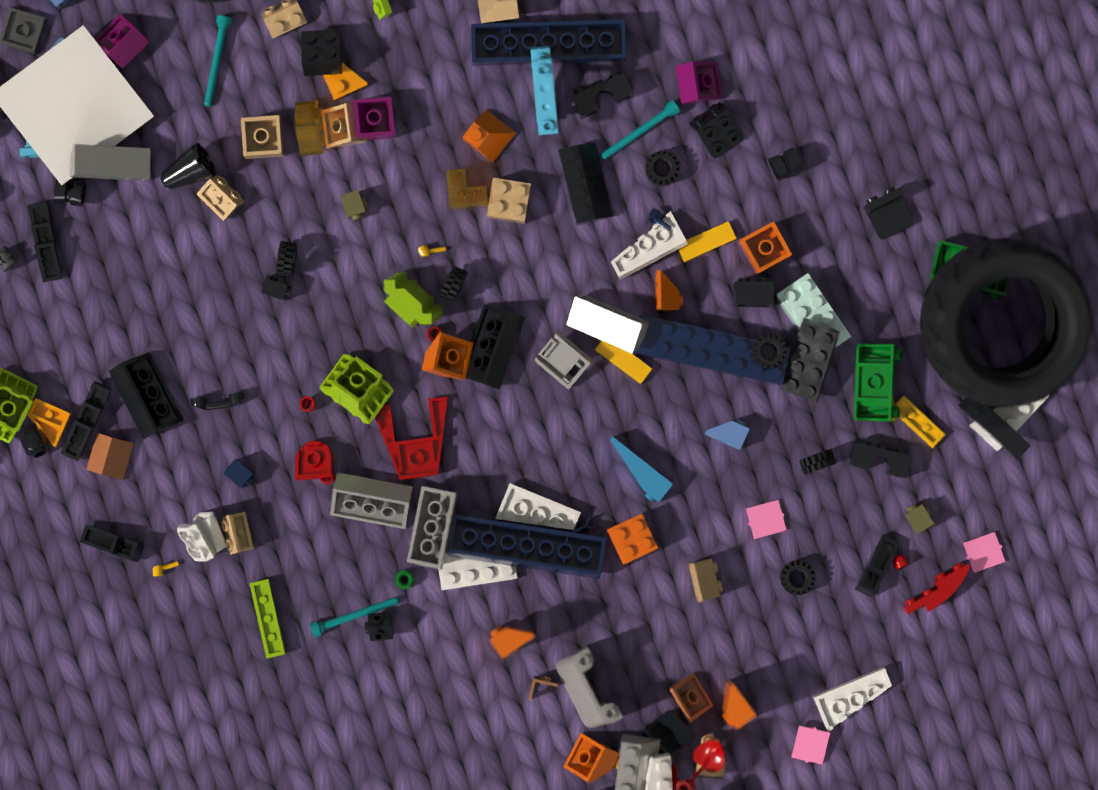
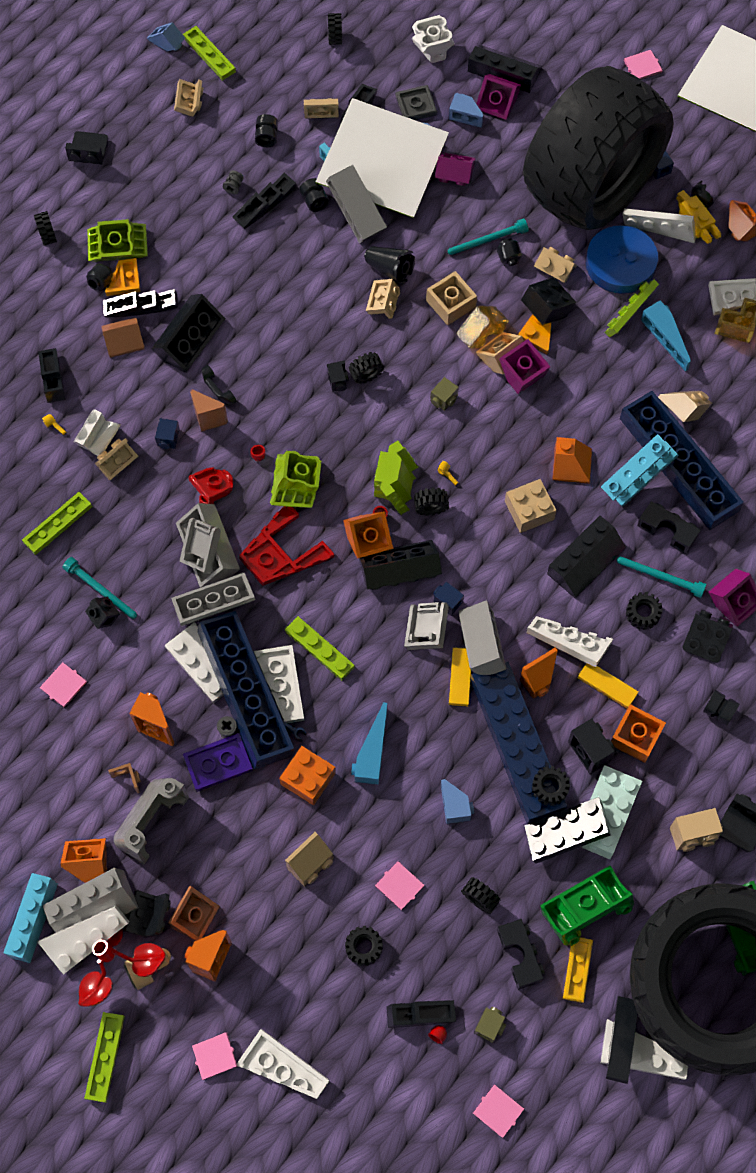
camera: 65 degrees right, 20 degrees down
(242, 427) = (209, 411): none -> nougat slope
(245, 51) = (509, 252): none -> black head
(371, 504) = (200, 540): none -> light grey container
(400, 584) = (155, 606): green plate -> none
(423, 694) = (63, 684): none -> bright pink piece
(460, 195) = (510, 463): clear yellow brick -> none
(524, 460) = (319, 648): none -> lime plate
(548, 325) = (449, 595): none -> dark blue brick
(555, 583) = (226, 722): none -> dark grey bush
(573, 605) = (217, 762): none -> dark purple plate
(655, 218) = (599, 629): dark blue hand -> none
(872, 256) = (696, 829): none -> tan brick
(945, 586) = (442, 1091): red slope -> none

